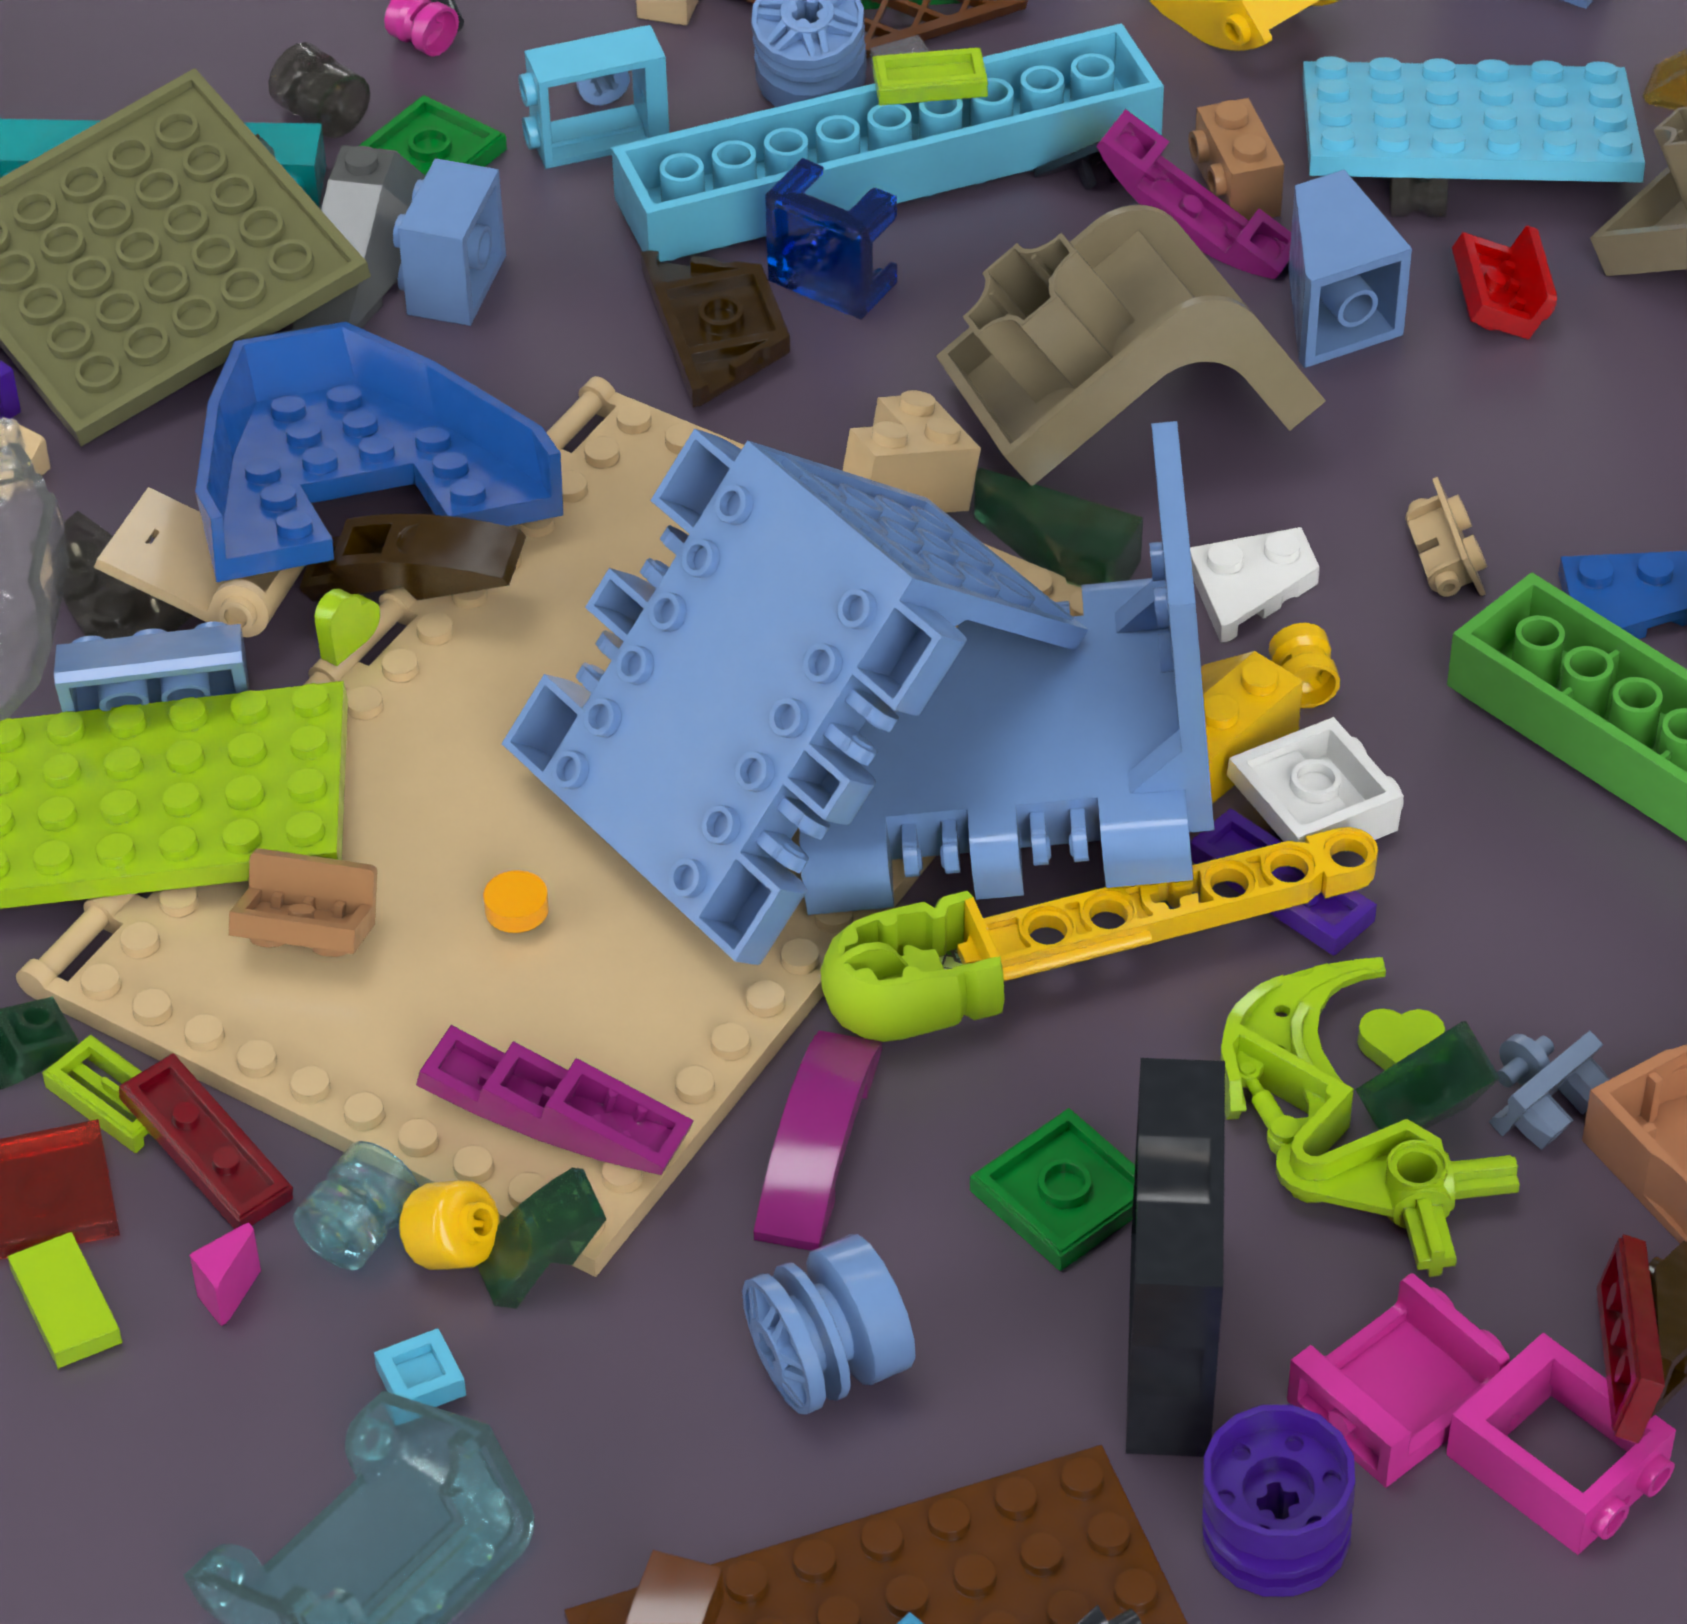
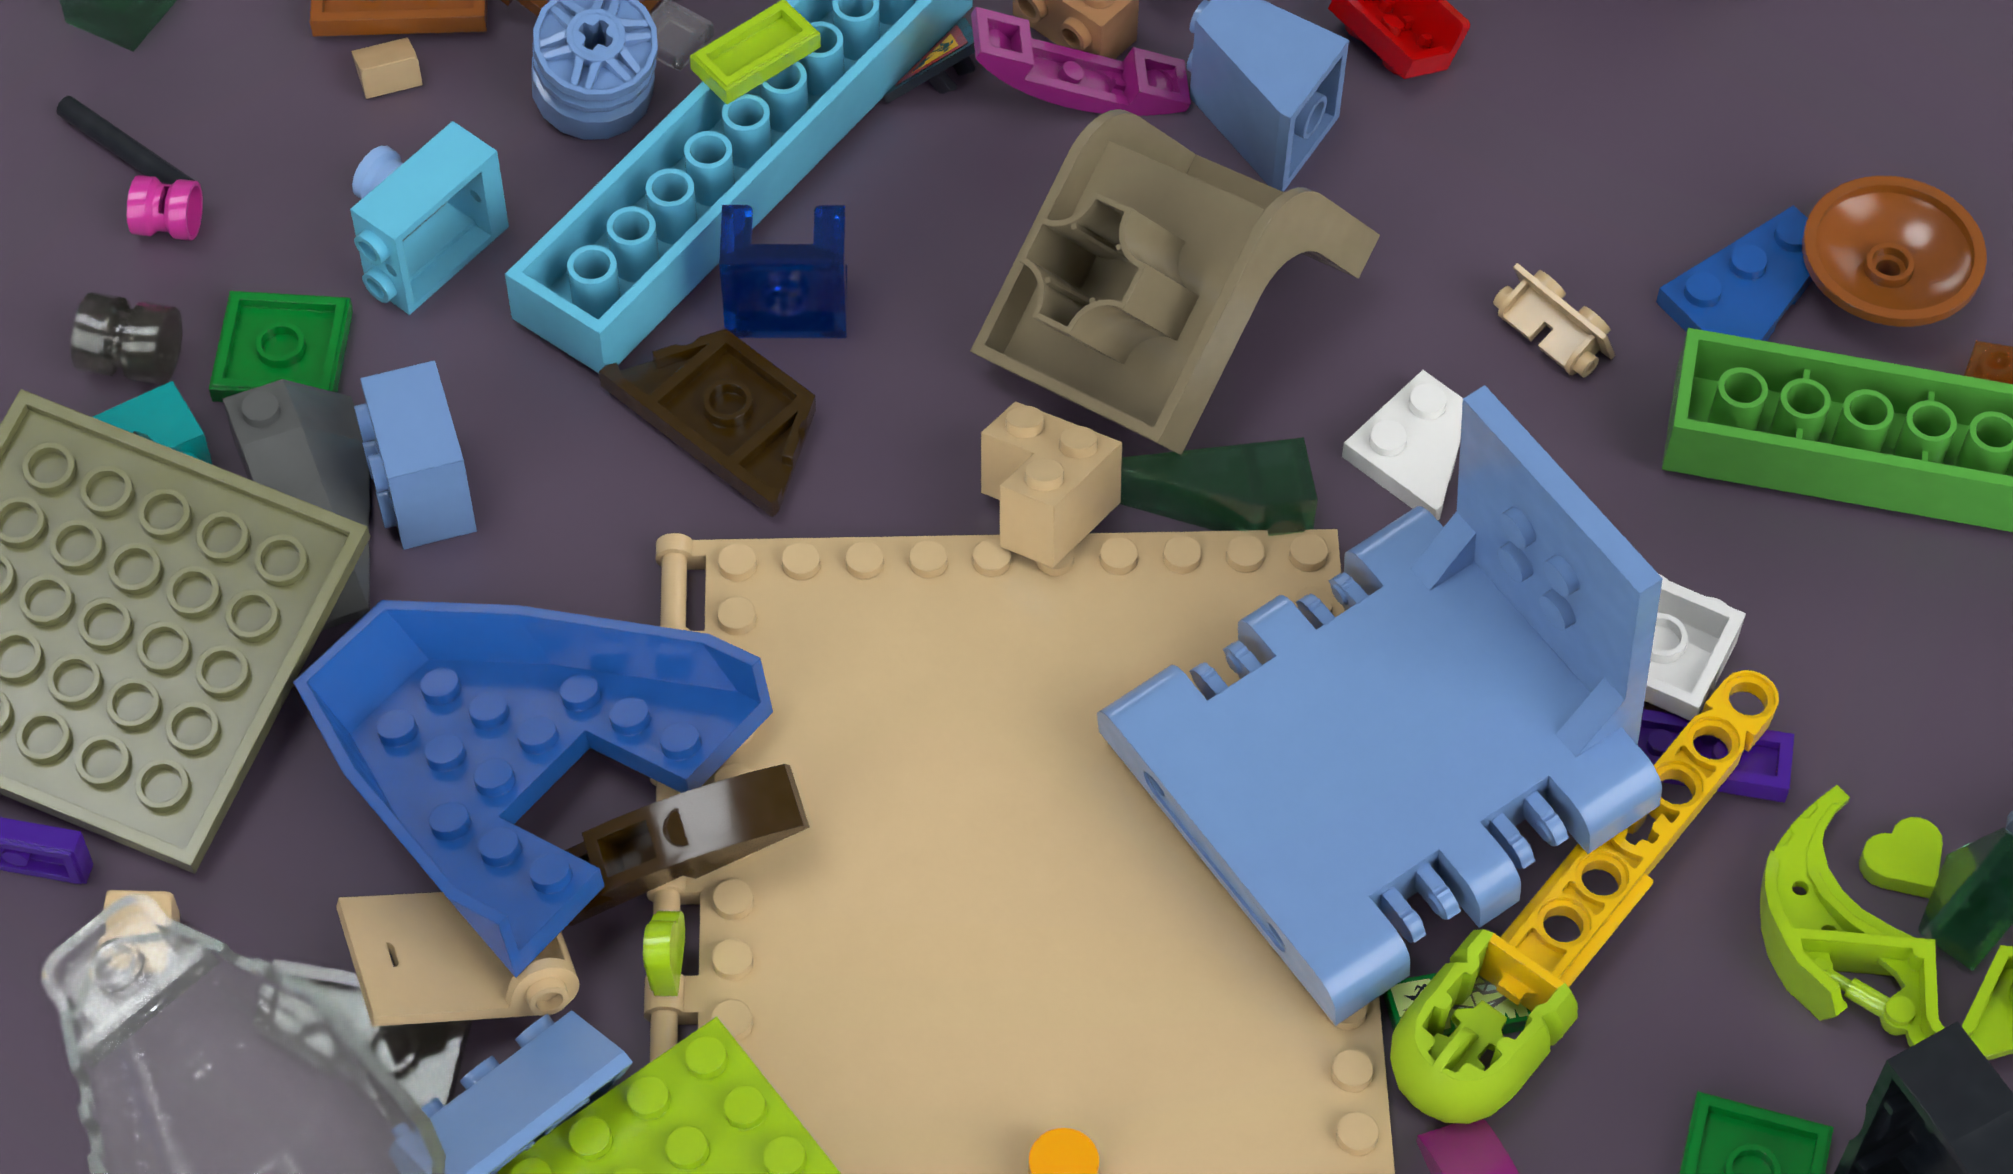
camera: 35 degrees left, 10 degrees up
(756, 670) = (1192, 824): medium blue bracket -> none

